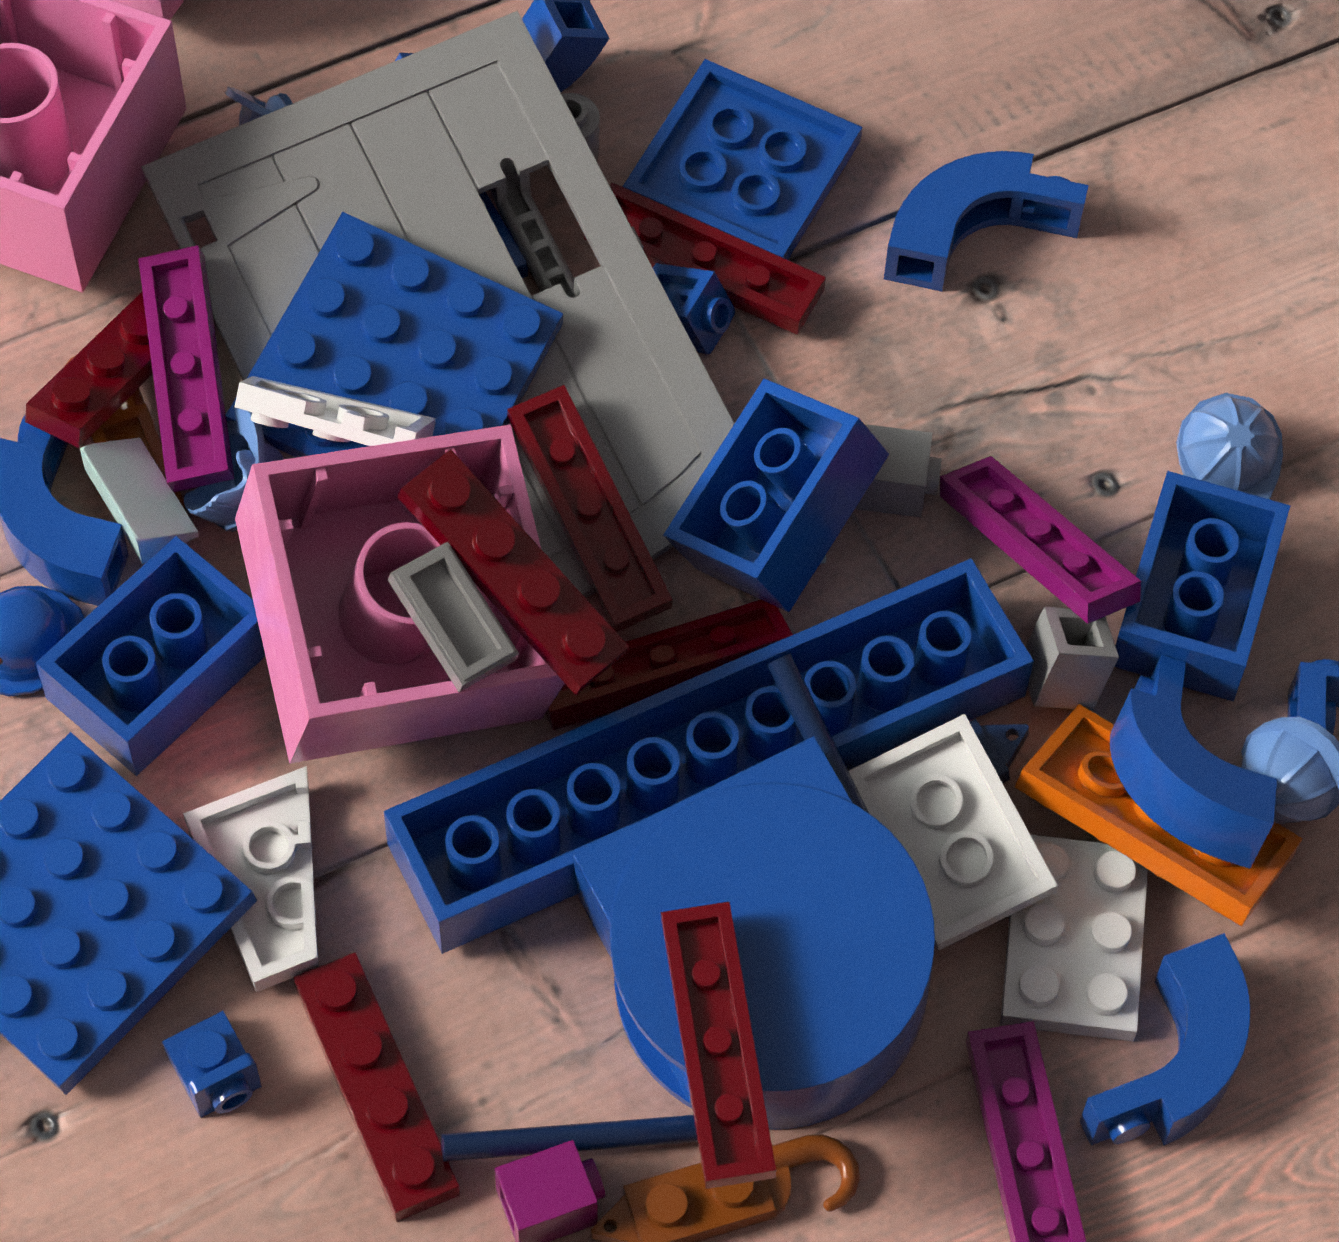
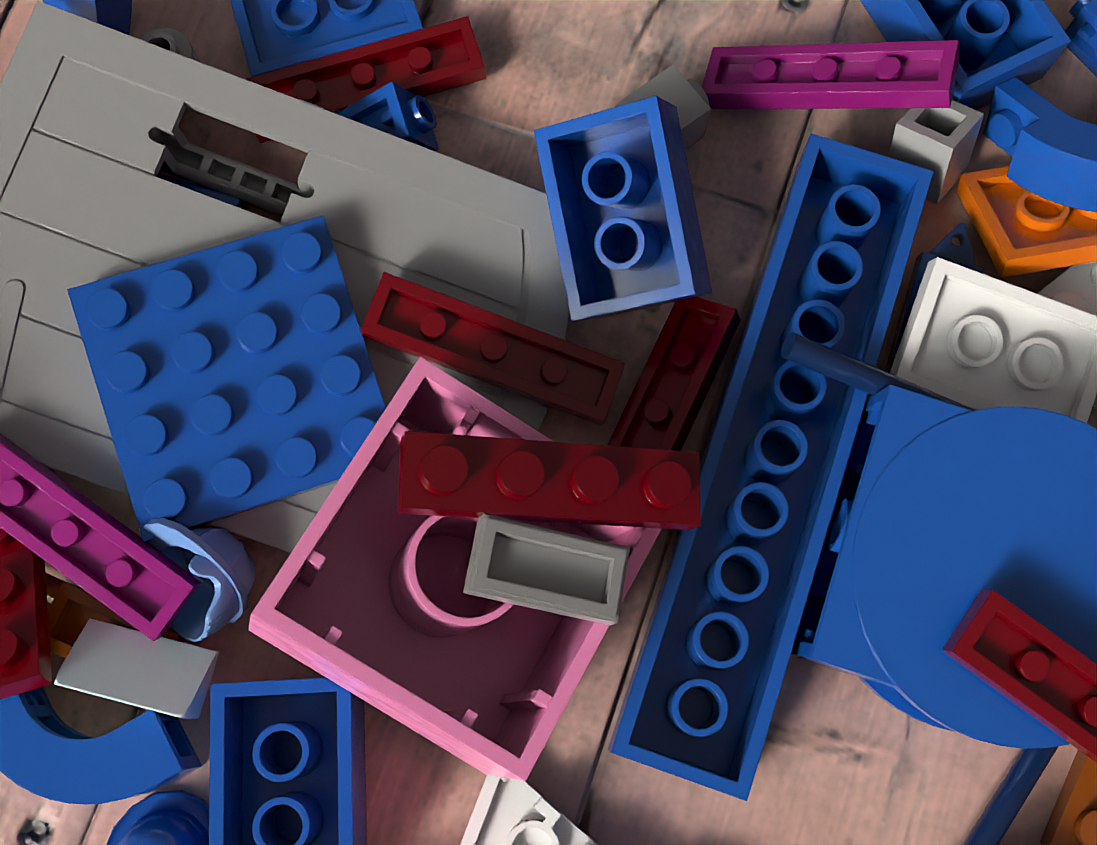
camera: 40 degrees left, 15 degrees up
(328, 414) = (250, 466): white wing -> none

